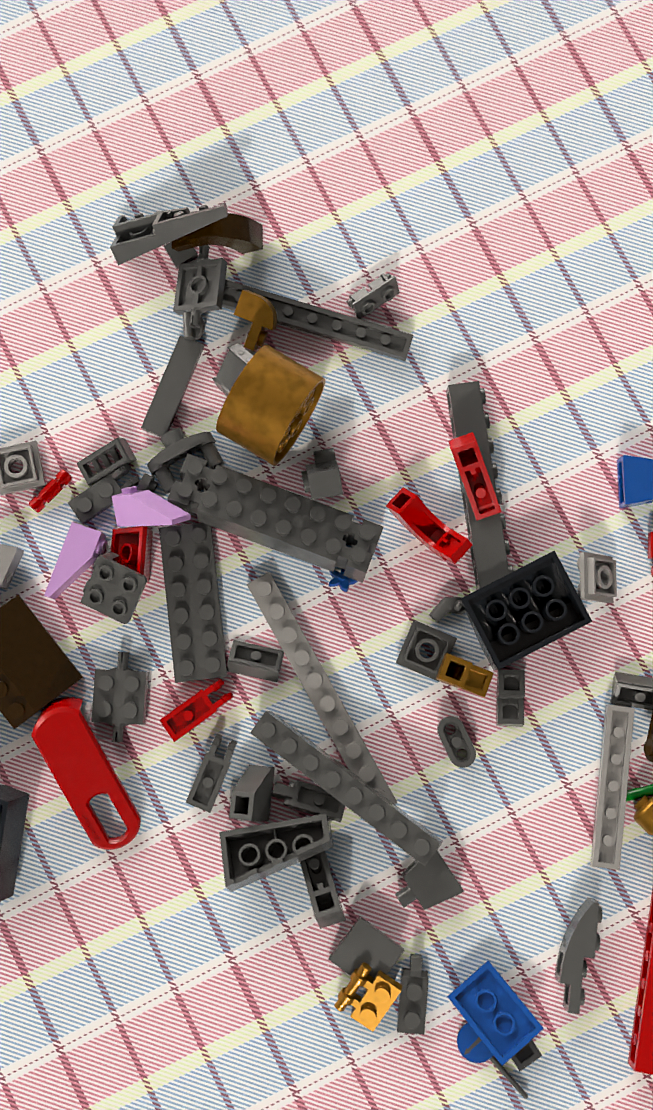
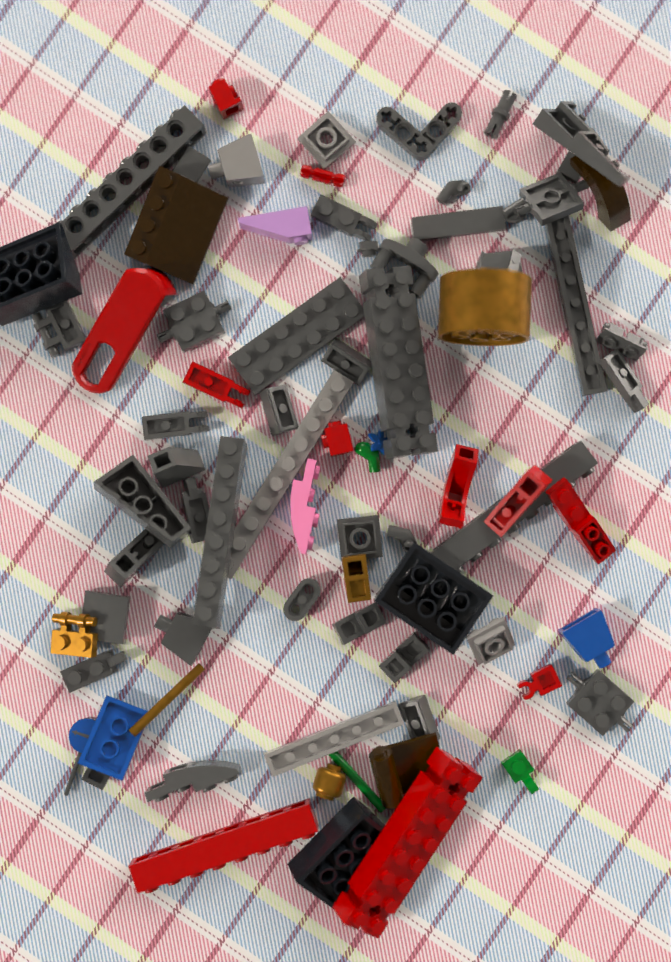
camera: 60 degrees right, 5 degrees up
(49, 829) = (65, 324): none -> dark grey plate
(70, 374) = (423, 137): none -> dark grey beam
(91, 290) = (500, 114): none -> dark grey pin
(113, 588) = (272, 268): dark grey bracket -> none
(118, 443) = (386, 215): dark grey slope -> none
(134, 548) = (307, 267): red slope -> none
(136, 373) = (453, 188): none -> dark grey arm
(145, 509) = (348, 257): lavender slope -> none
(245, 567) = (347, 361): none -> dark grey slope
(260, 312) = (556, 259): pearl gold brick -> none
(316, 618) = (337, 439): none -> red brick
(324, 476) = (450, 381): dark grey hinge -> none
(341, 598) = (364, 450): none -> green arm
(373, 695) = (302, 516): none -> bright pink slope
(412, 313) = (624, 380): none -> dark grey hinge
(484, 935) = (166, 700): none -> pearl gold bar
(525, 429) = (580, 521): none -> red slope
(567, 671) = (404, 657): none -> dark grey slope

